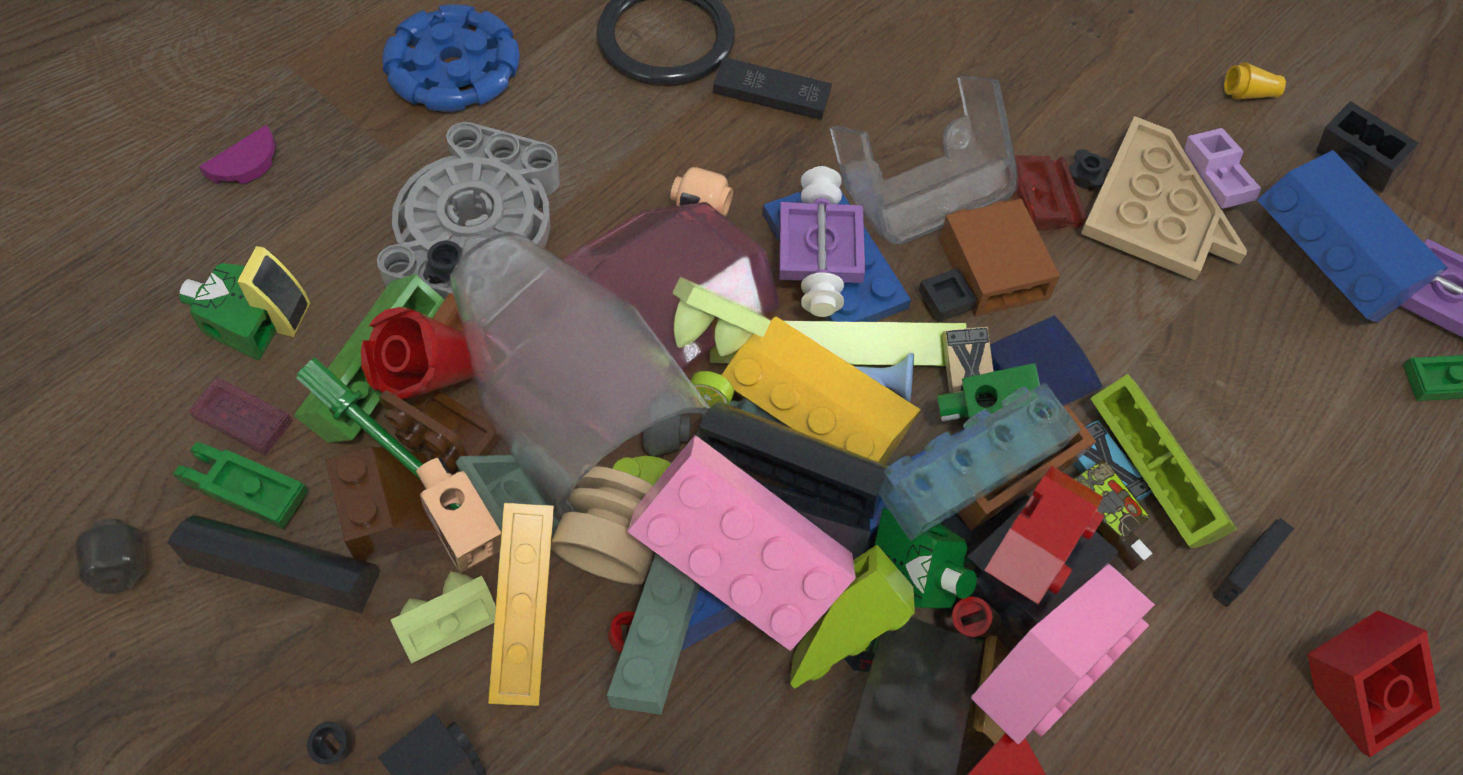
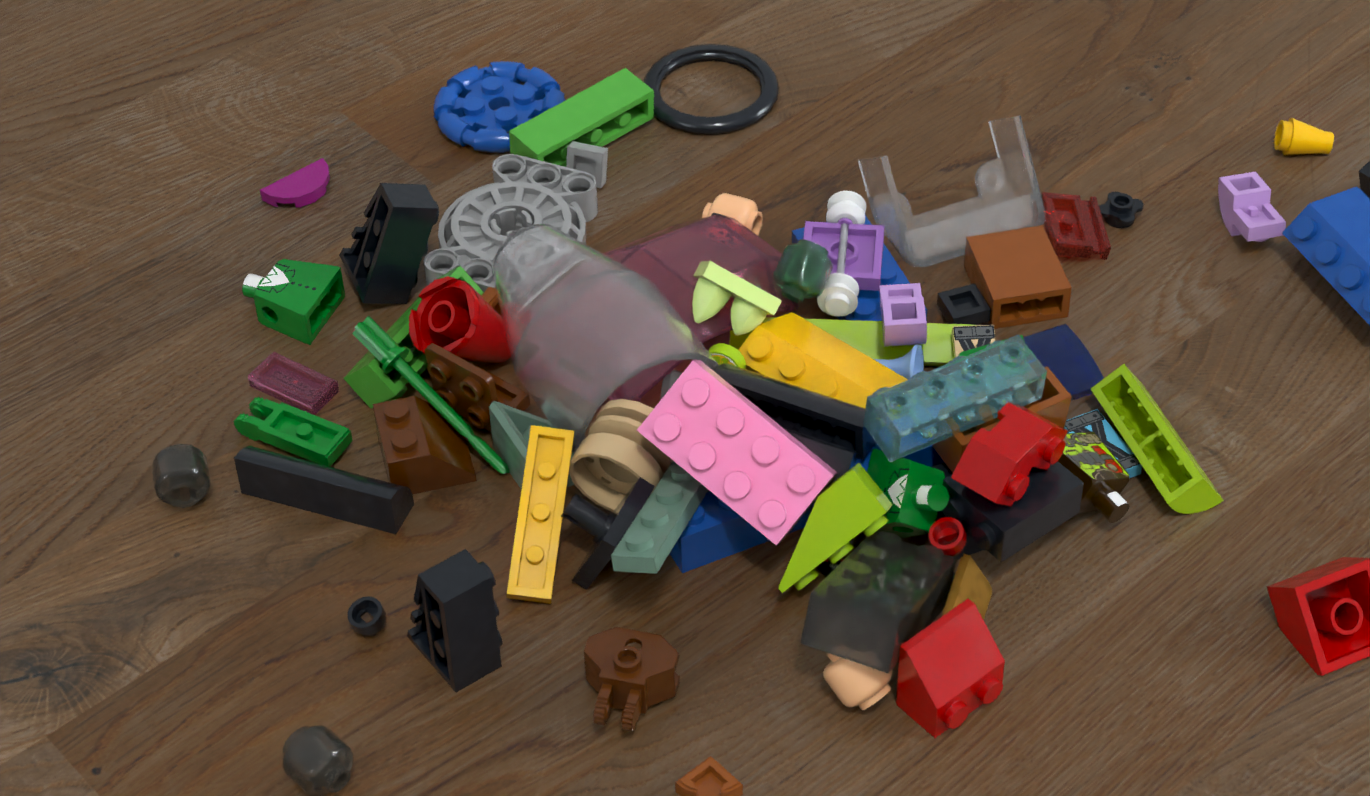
camera: 10 degrees right, 15 degrees down
(273, 288) = (329, 277): slope -> none
(339, 245) = (391, 243): none -> black wedge
(435, 624) = (475, 529): yellowish green tile -> none
(439, 254) = (483, 256): black plate -> none
(466, 532) = (489, 452): light nougat torso -> none
(539, 78) = (589, 117): none -> bright green brick
(546, 126) = (588, 159): none -> light grey plate
(600, 621) = (605, 528): none -> black tile
(772, 88) = (811, 137): black tile -> none
(787, 274) = (803, 271): none -> clear green head
(894, 319) = (903, 314): none -> lavender brick
(1064, 655) = (1022, 550): bright pink brick -> none
(1160, 206) = (1186, 239): tan wing -> none
(1252, 562) = (1229, 520): black tile -> none

